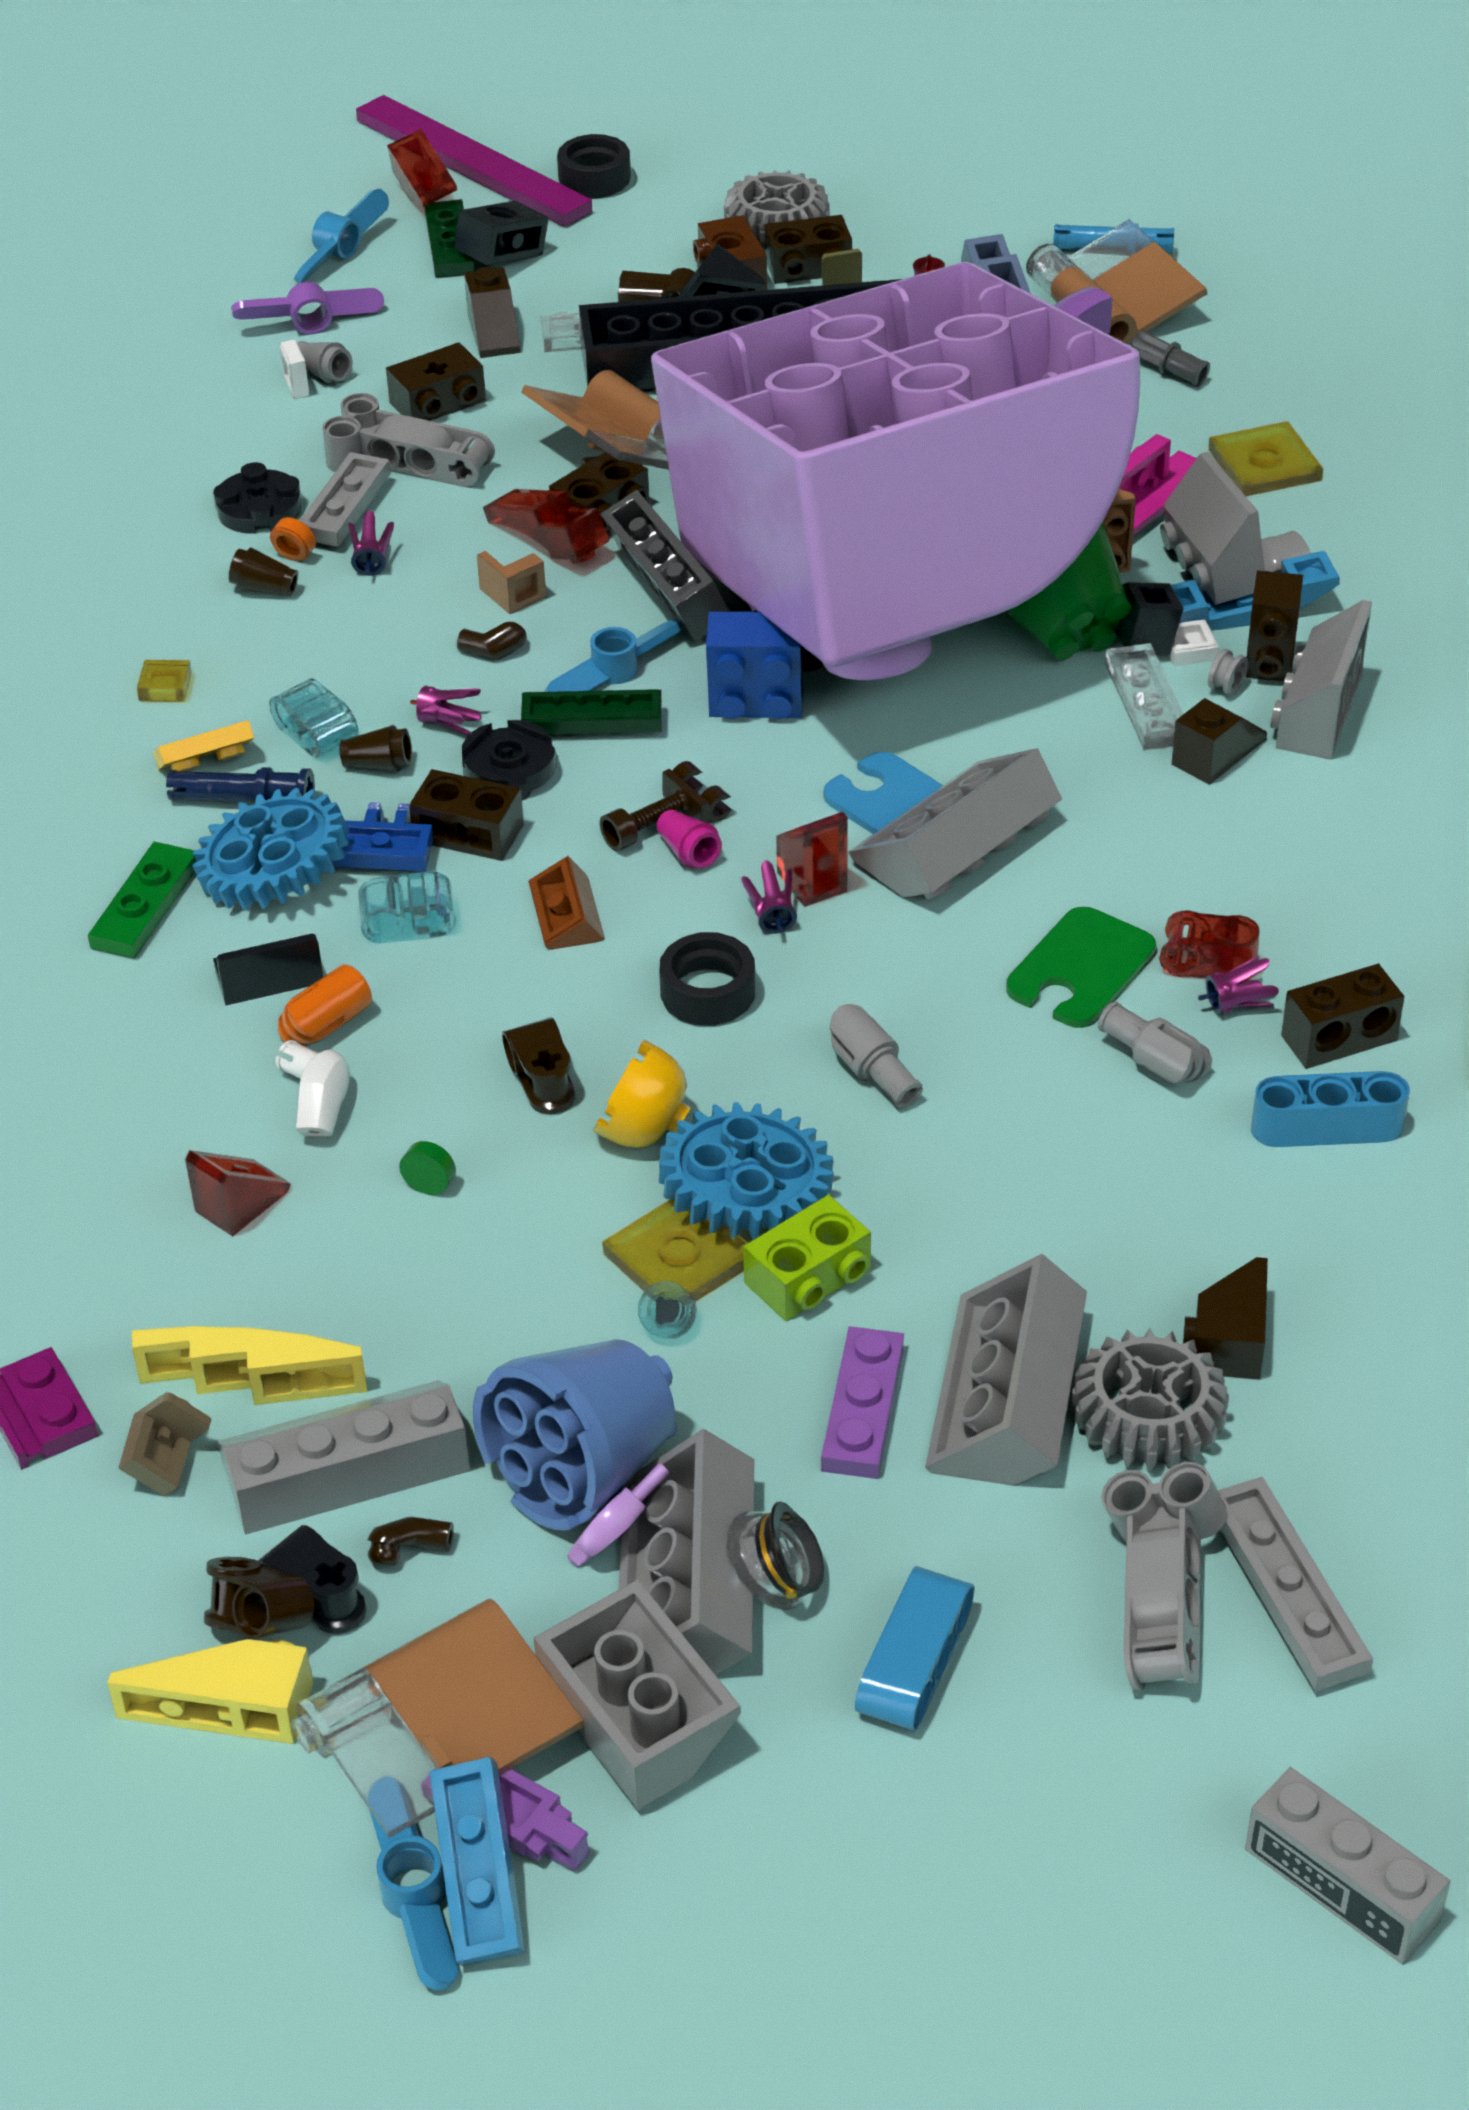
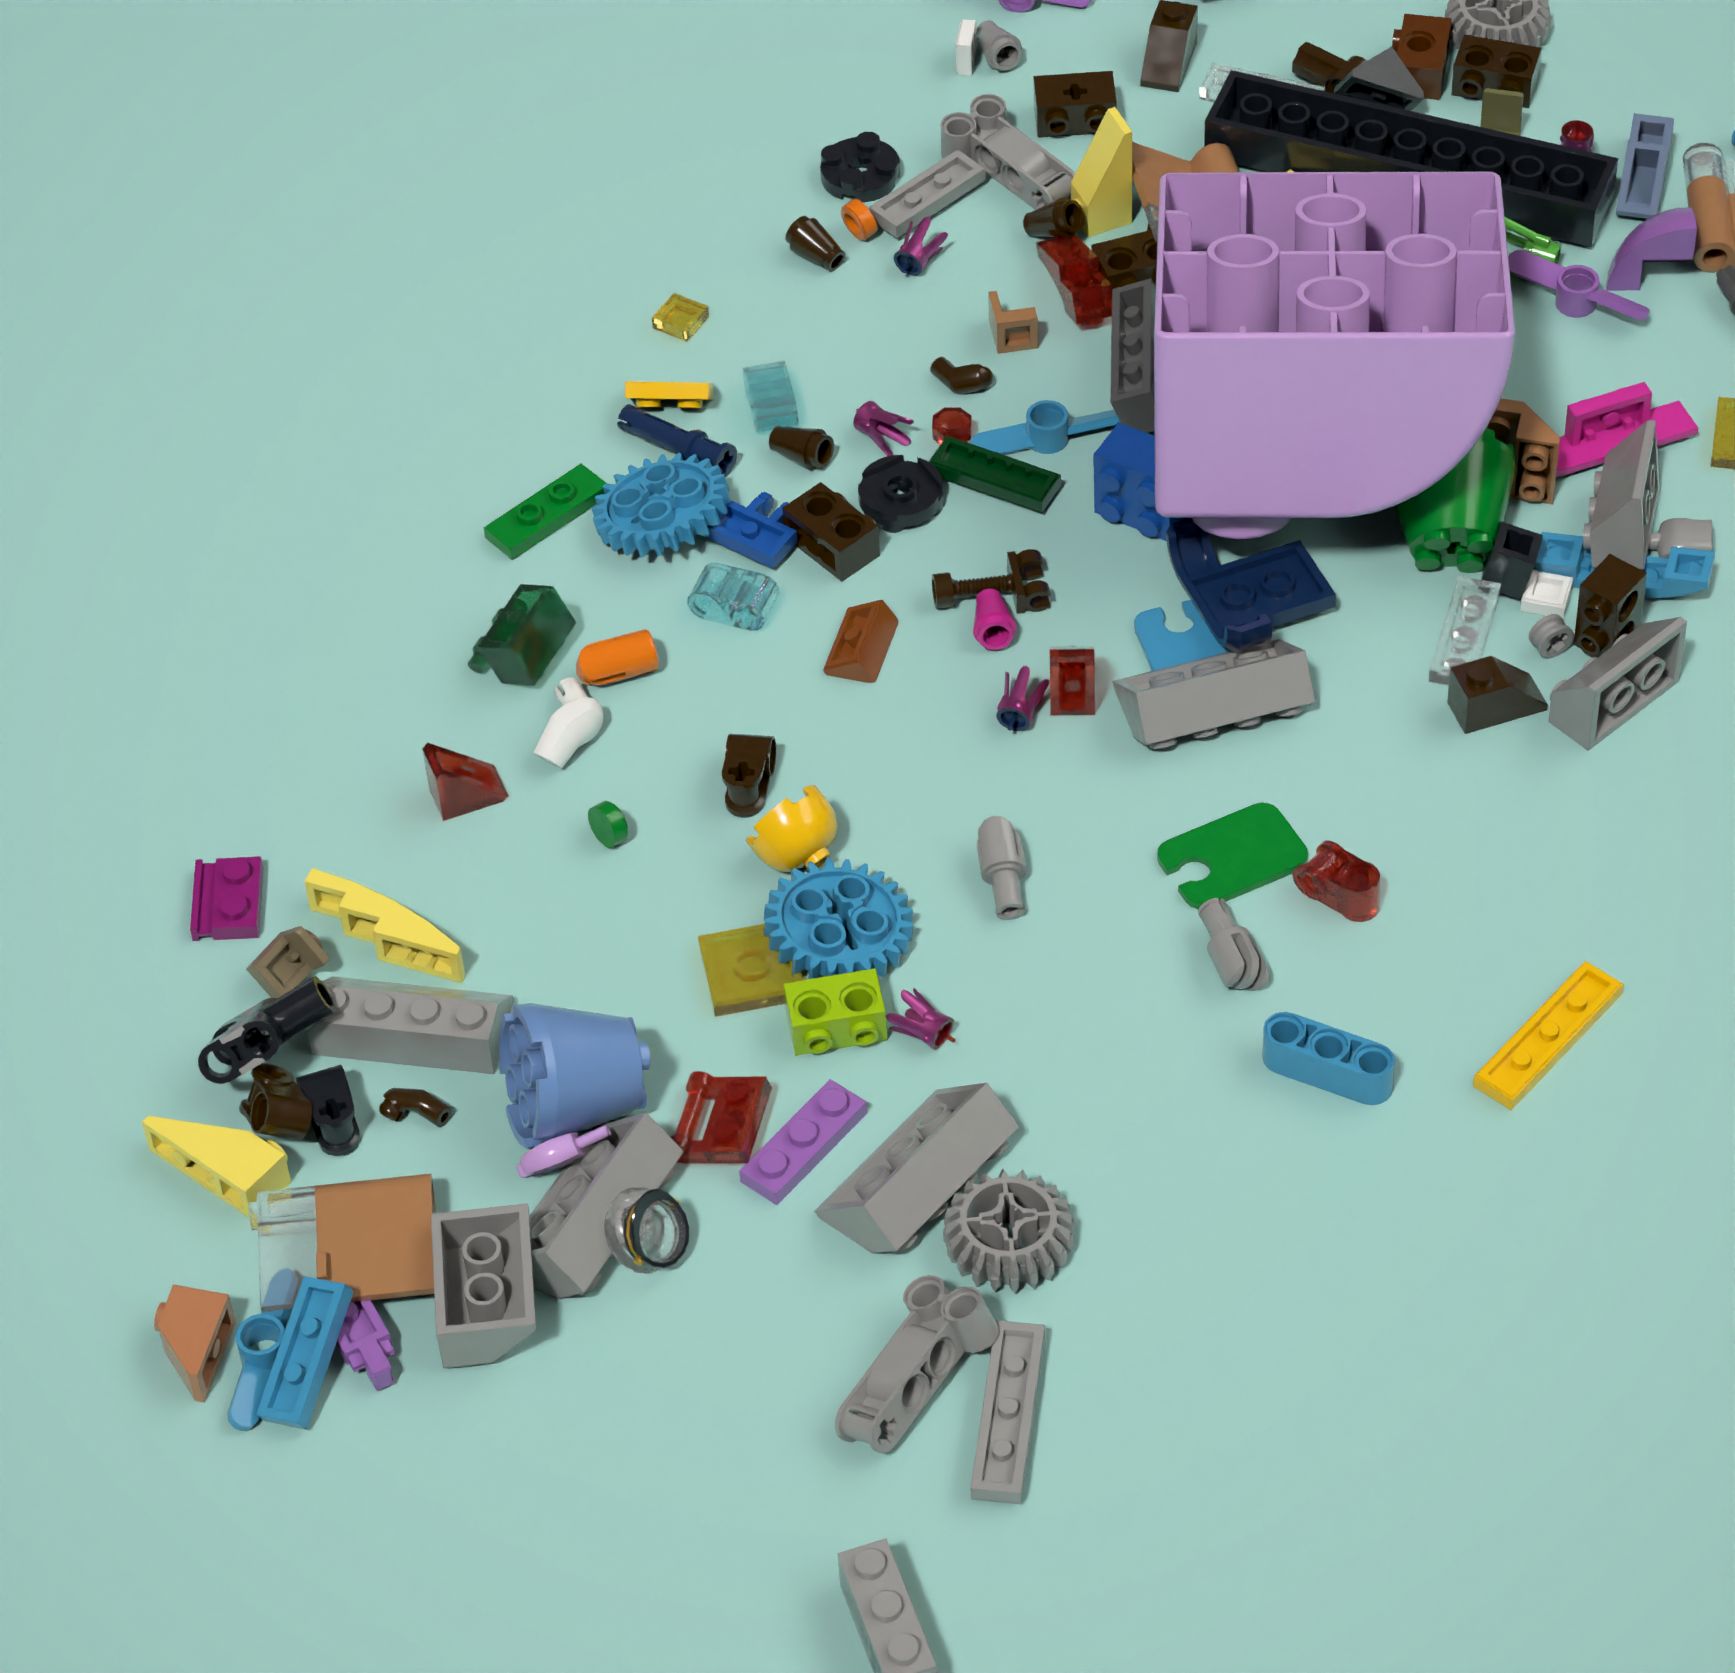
camera: 30 degrees right, 5 degrees up
(197, 1545) = (264, 1027): none -> black connector
(207, 1018) = (524, 635): none -> clear green brick
(268, 969) = (604, 608): black panel -> none
(319, 1903) = (195, 1334): none -> nougat slope
(491, 480) = (1057, 219): none -> dark brown cone
(514, 681) = (953, 423): none -> clear red tile
(524, 425) = (1105, 177): none -> light yellow slope
(667, 1310) = (706, 1010): clear light blue tile -> none
(714, 1004) = (922, 775): black tyre -> none
(776, 1403) = (732, 1122): none -> clear red plate
(914, 1238) = (922, 1021): none -> flat silver piece
(914, 1648) = (705, 1339): dark azure beam -> none
(929, 731) = (1248, 594): none -> dark blue piece
(1228, 991) = (1332, 926): flat silver piece -> none
(1233, 1321) = (1117, 1197): dark brown slope -> none
(1342, 1015) = (1398, 984): dark brown brick -> none

